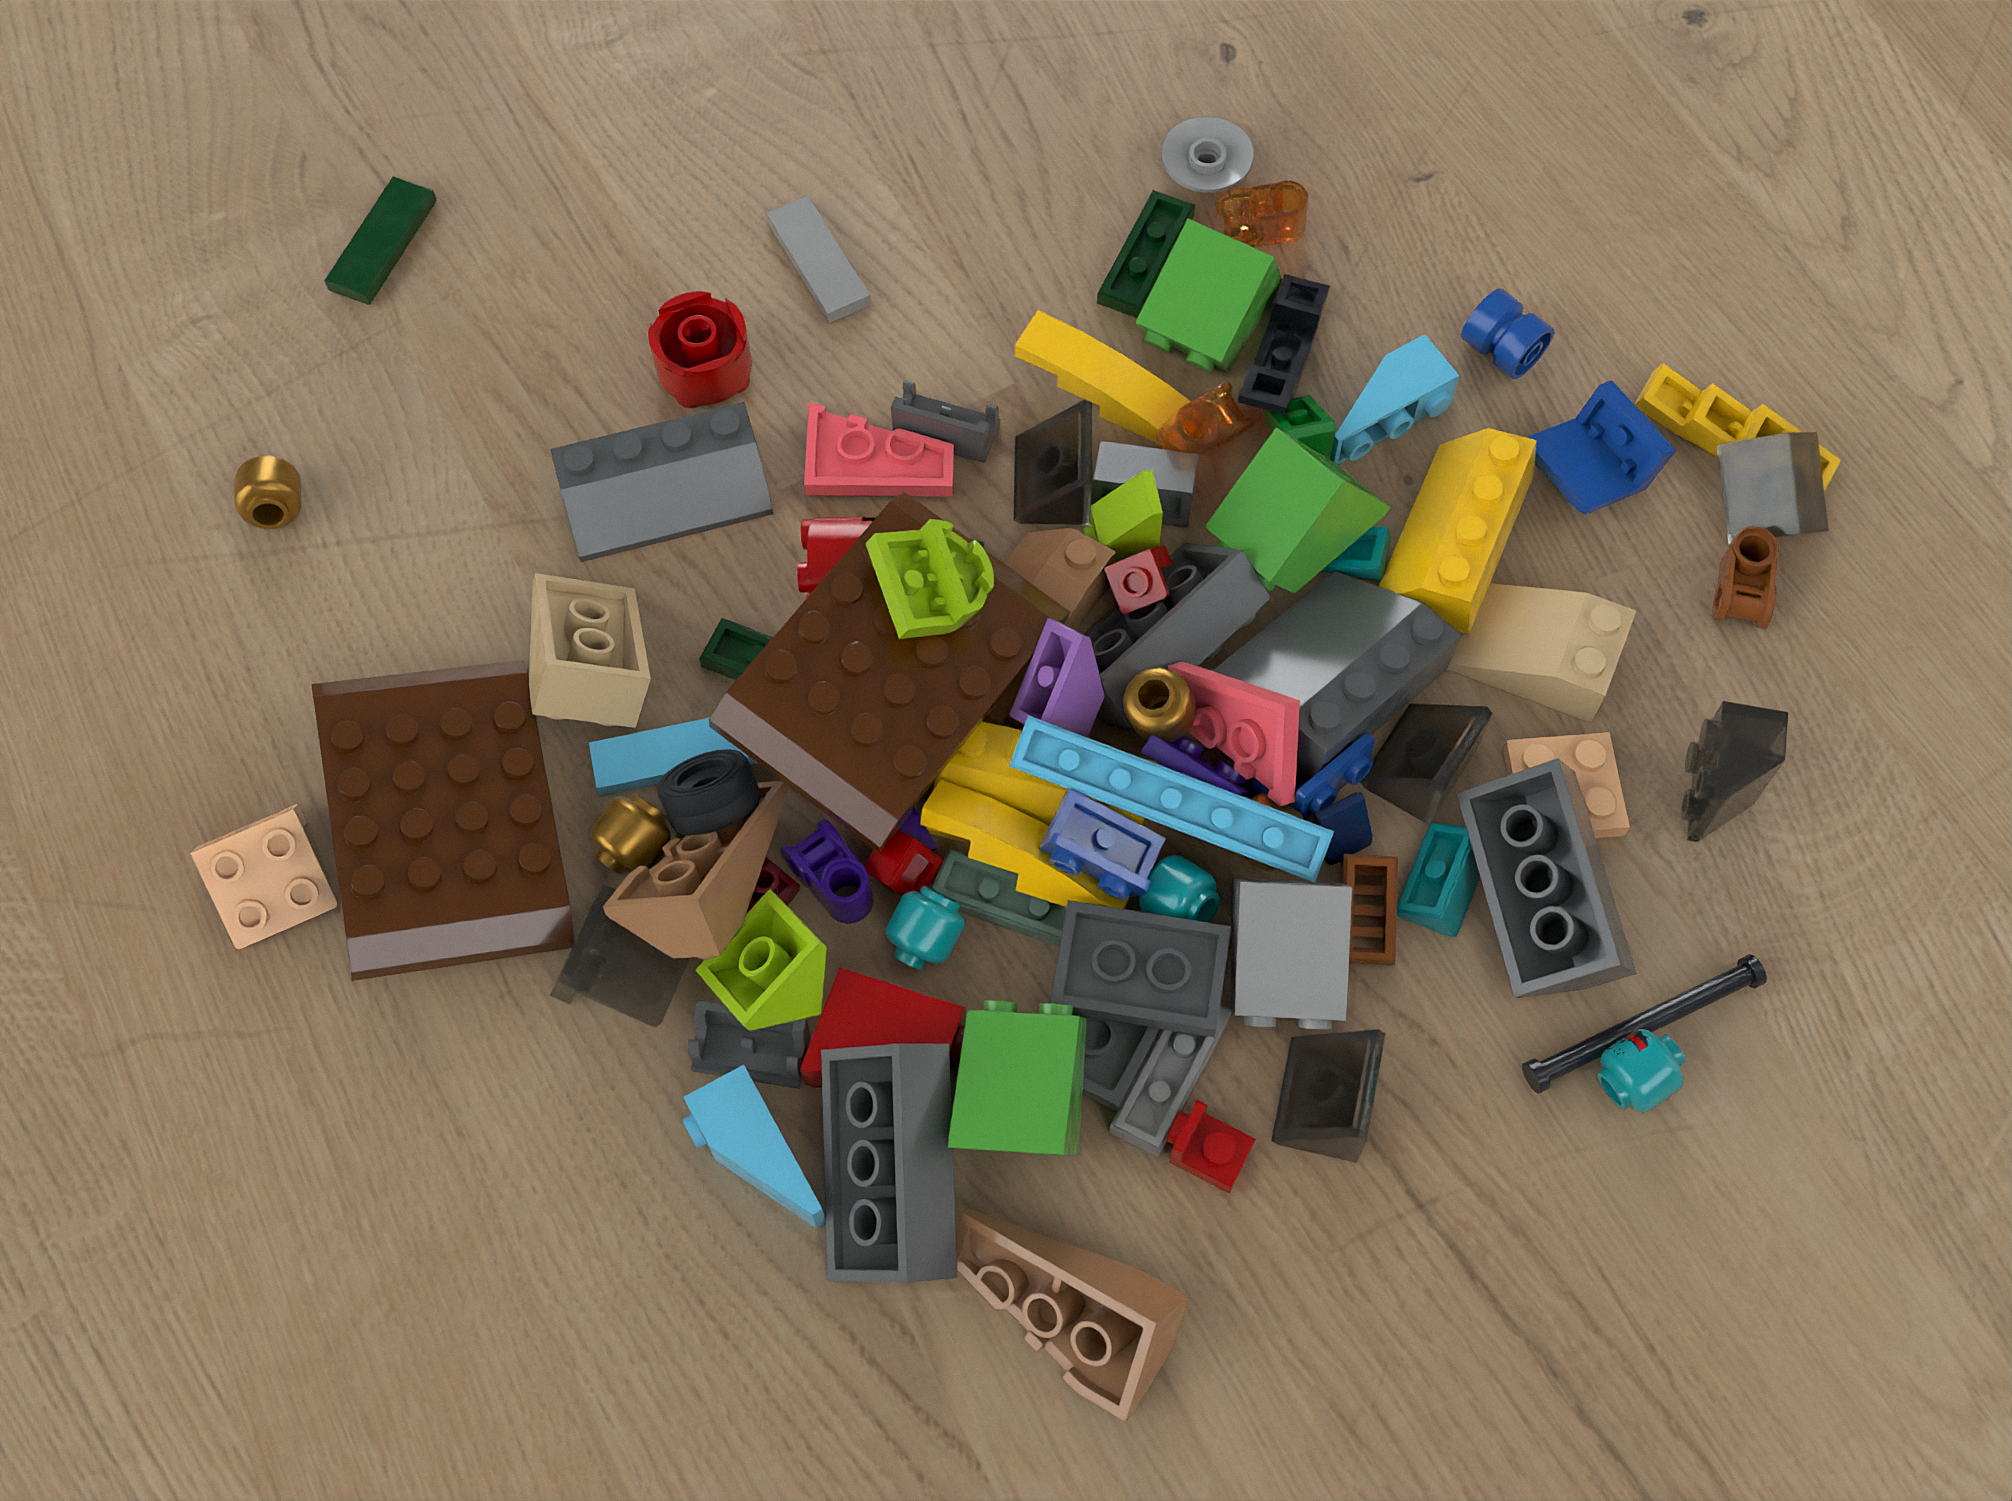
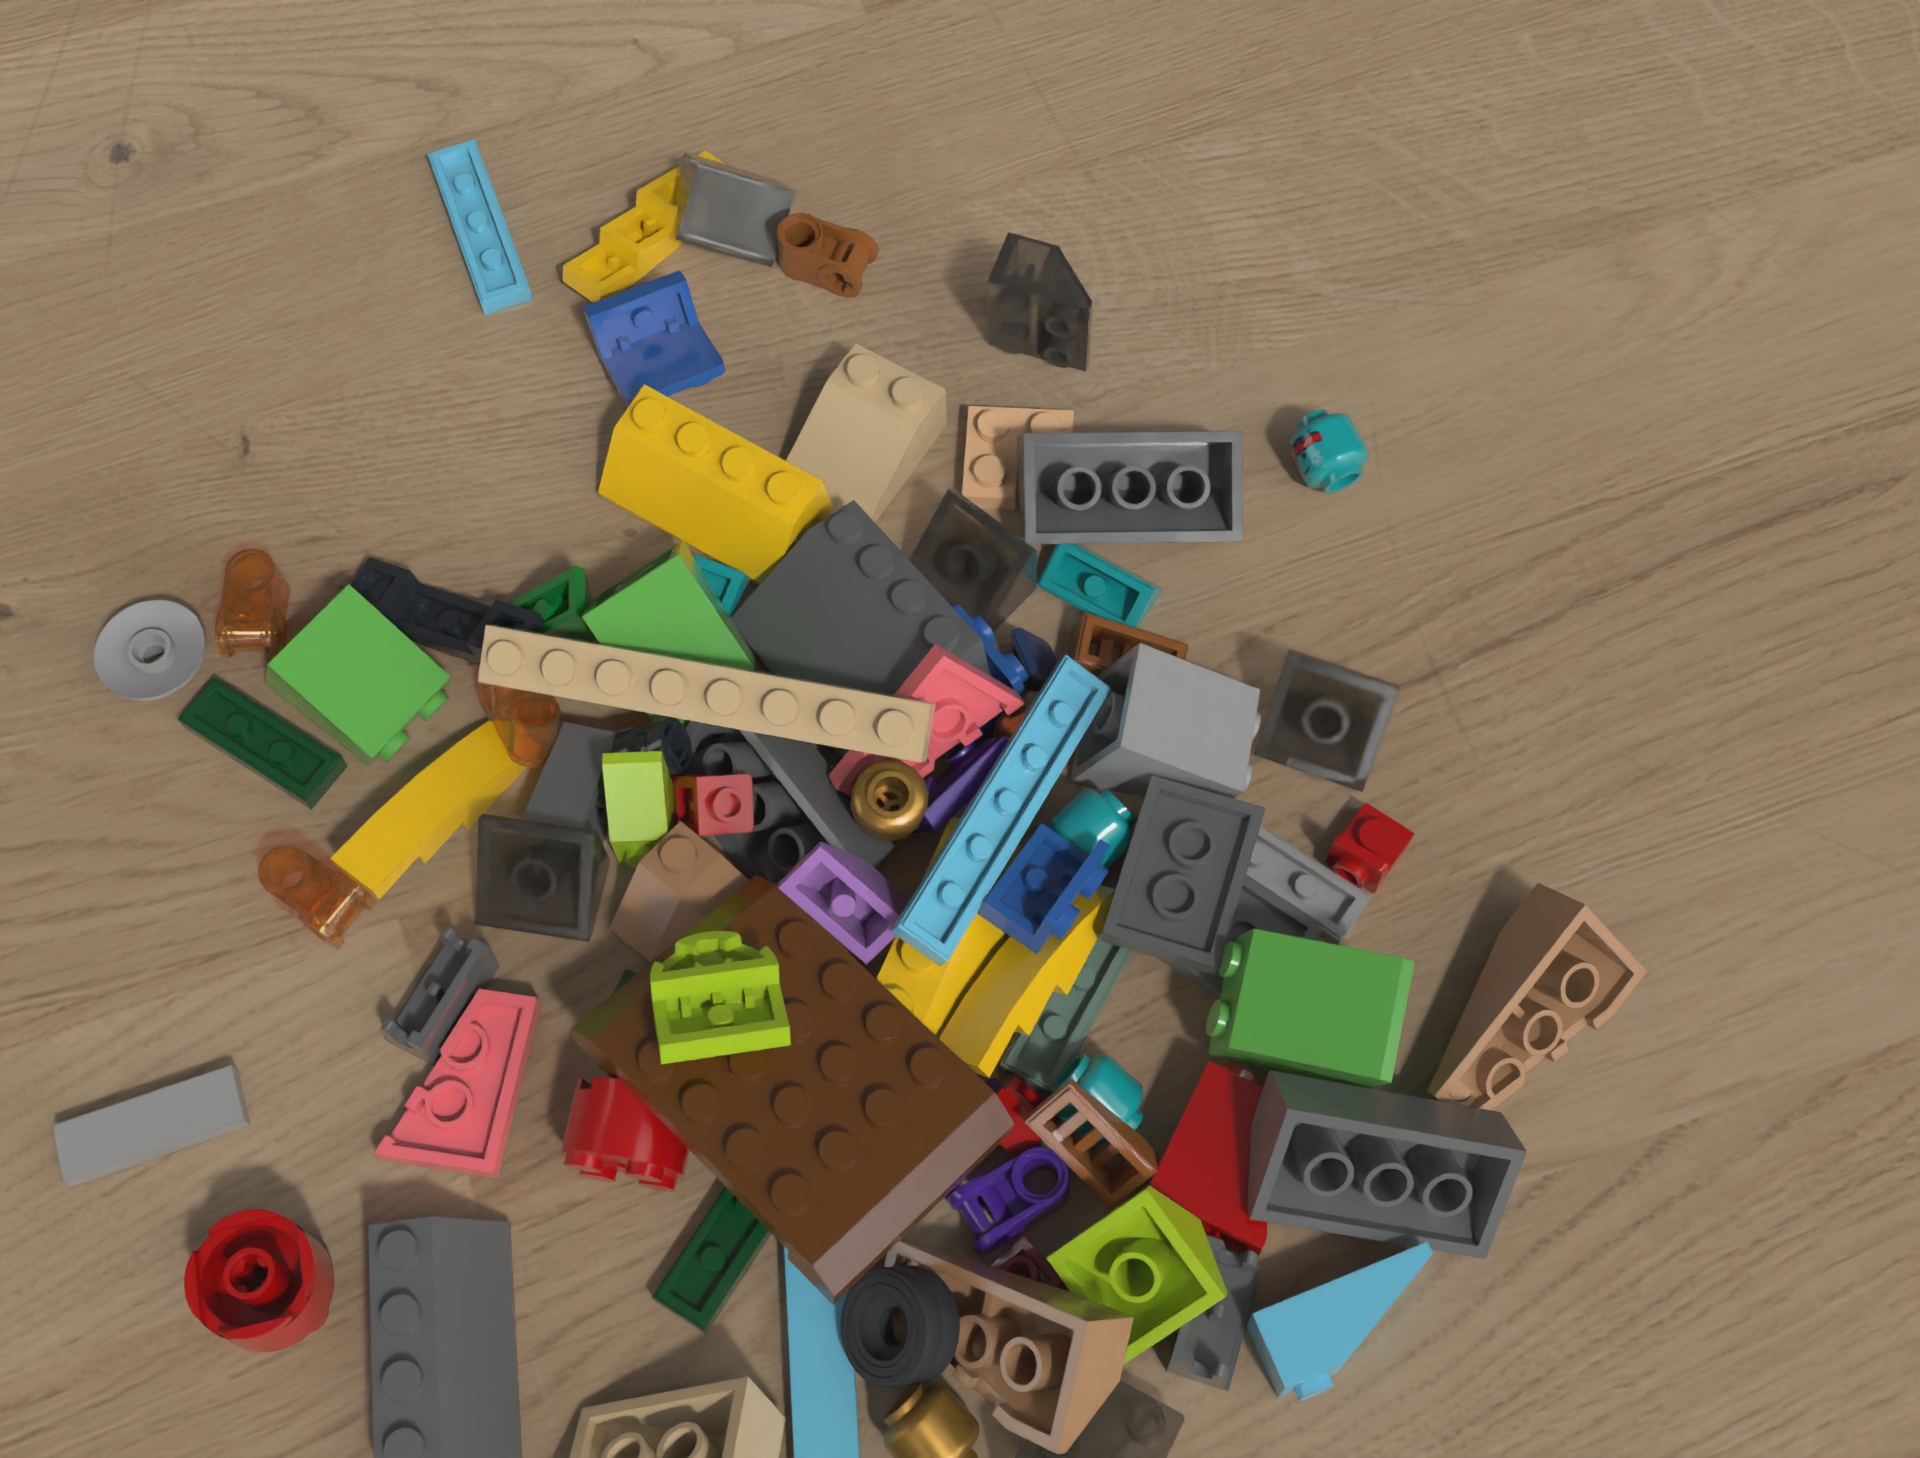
camera: 80 degrees left, 0 degrees up
(870, 930) = (1107, 1183): none -> dark orange slope
(1010, 313) = (321, 899): none -> clear orange piece
(1183, 523) = (662, 735): none -> black wheel
(1226, 545) = (707, 693): none -> tan plate
(1402, 391) = (527, 513): medium azure slope -> none
(1513, 338) = (486, 396): blue wheel -> none
(1698, 297) = (480, 227): none -> medium azure tile
(1746, 973) = (1317, 539): black bar -> none

